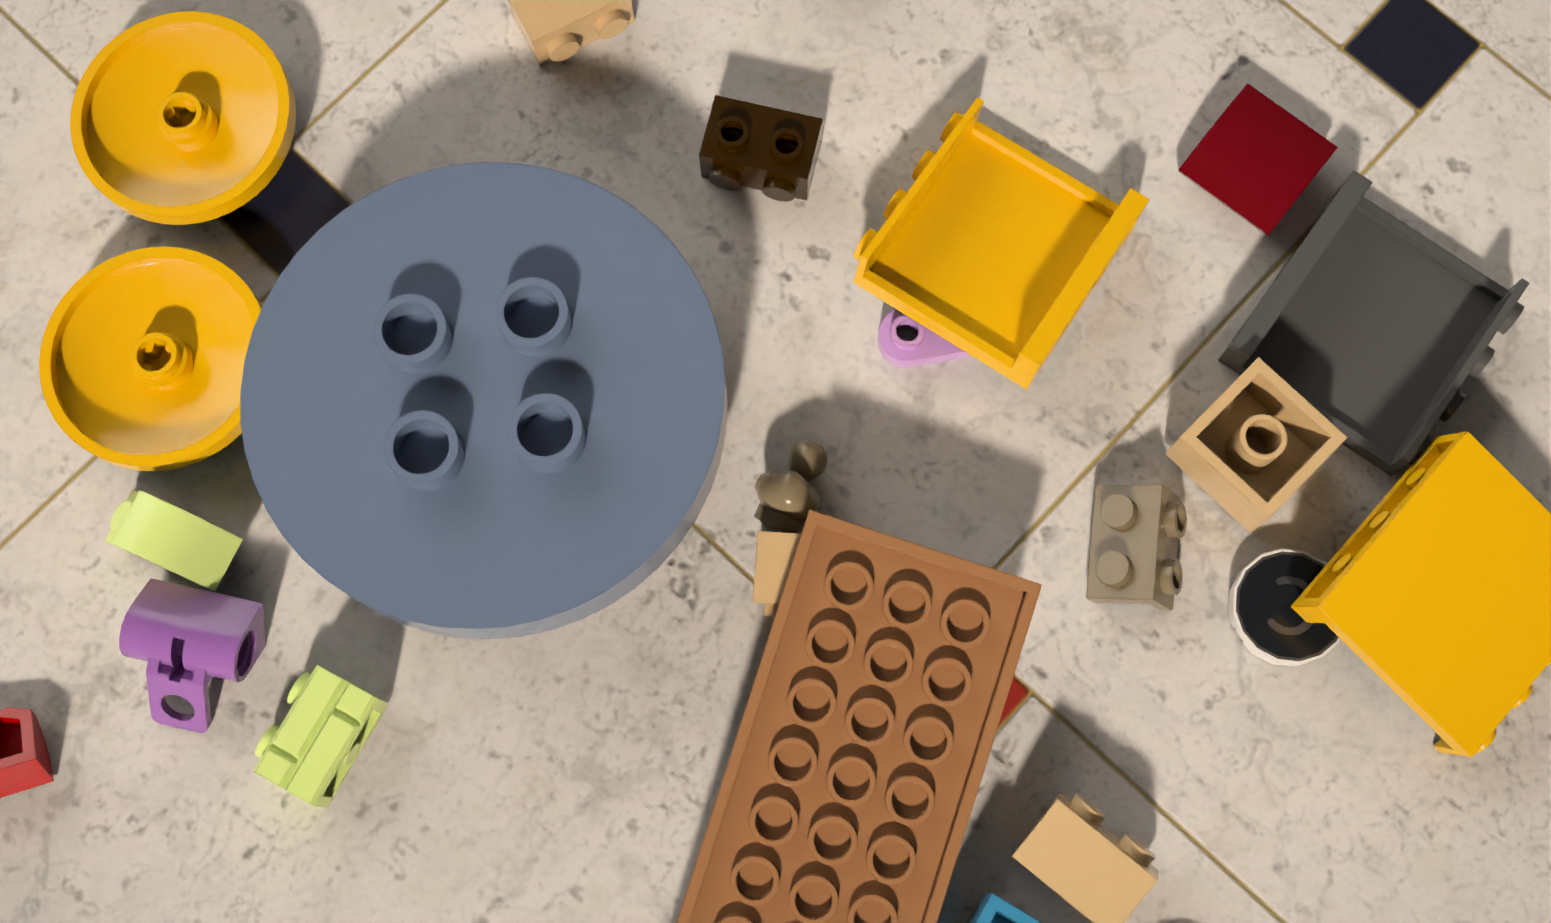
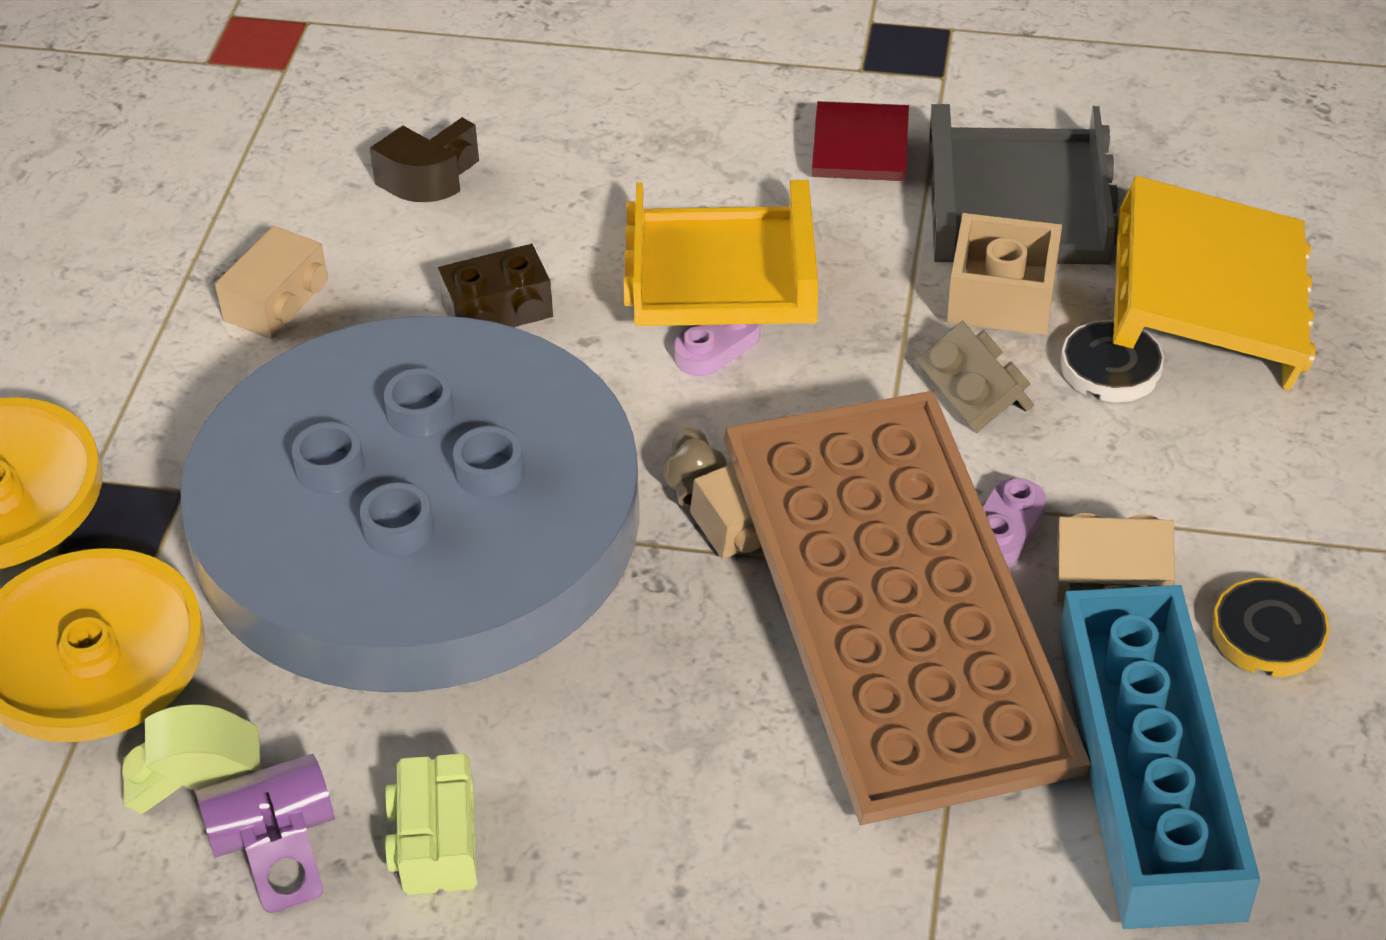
camera: 35 degrees left, 30 degrees down
(1039, 734) = (1015, 514): none -> lavender plate

